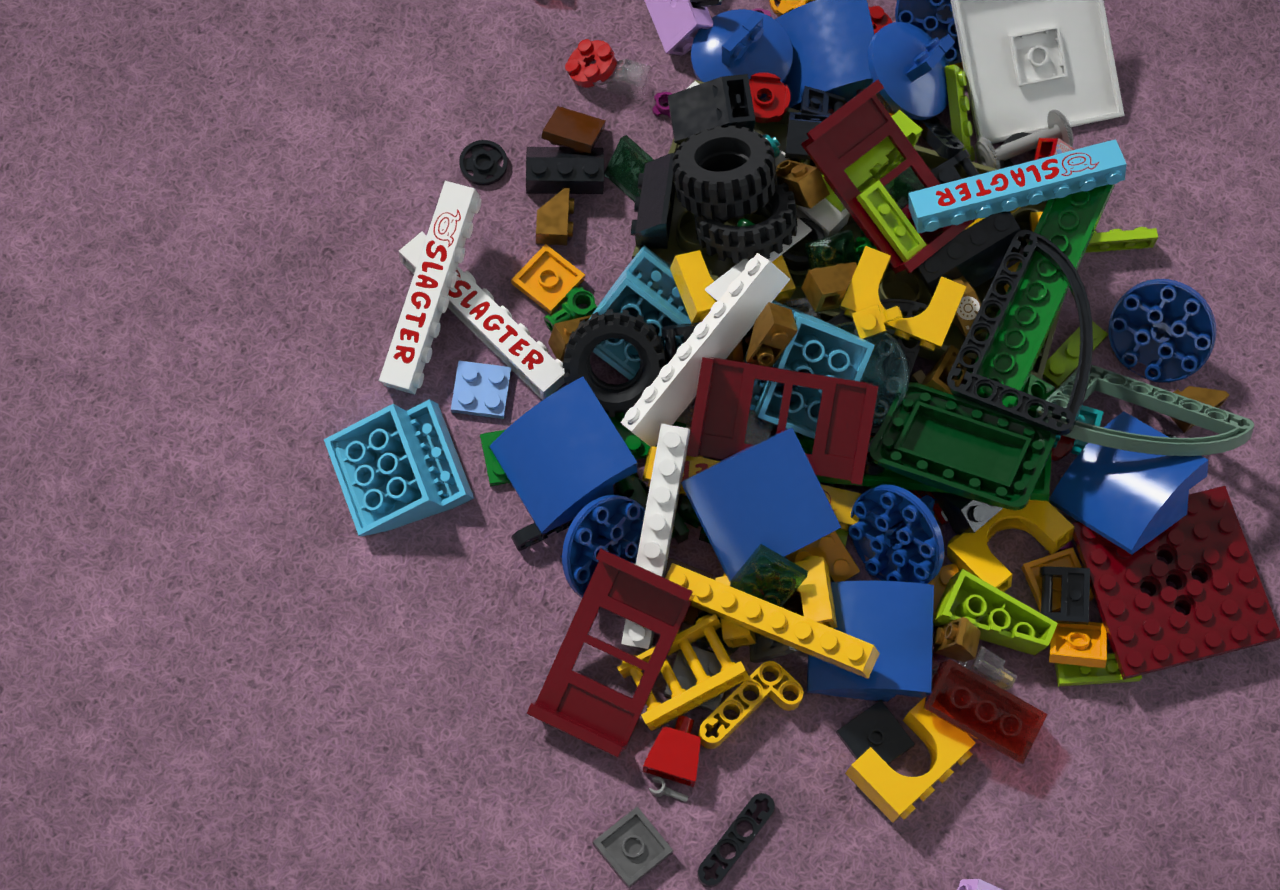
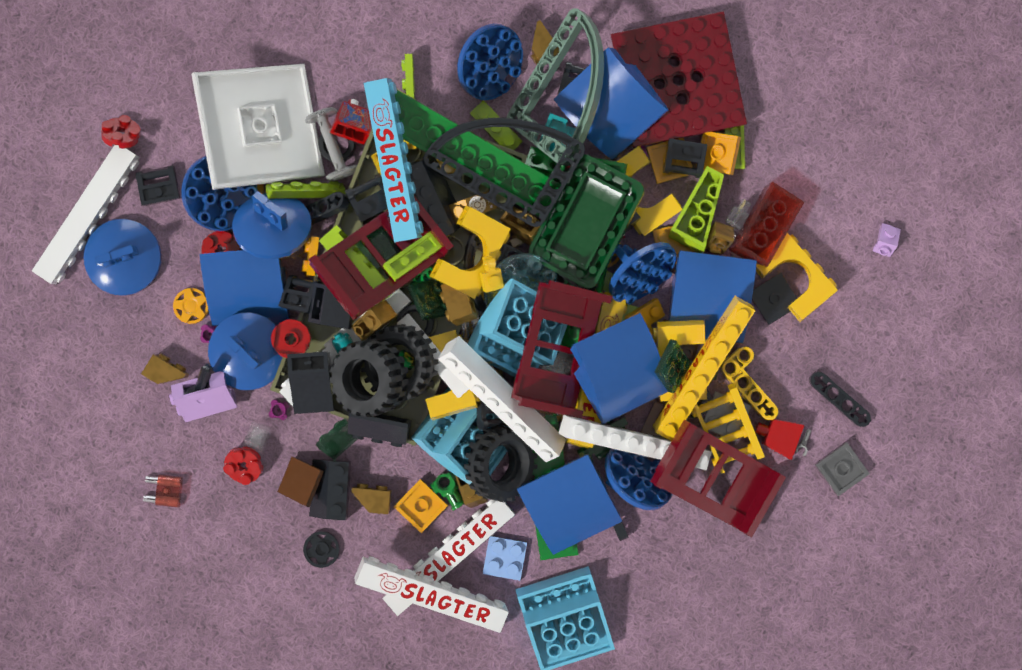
camera: 80 degrees left, 20 degrees up
(771, 335) = (500, 352): pearl gold slope -> none

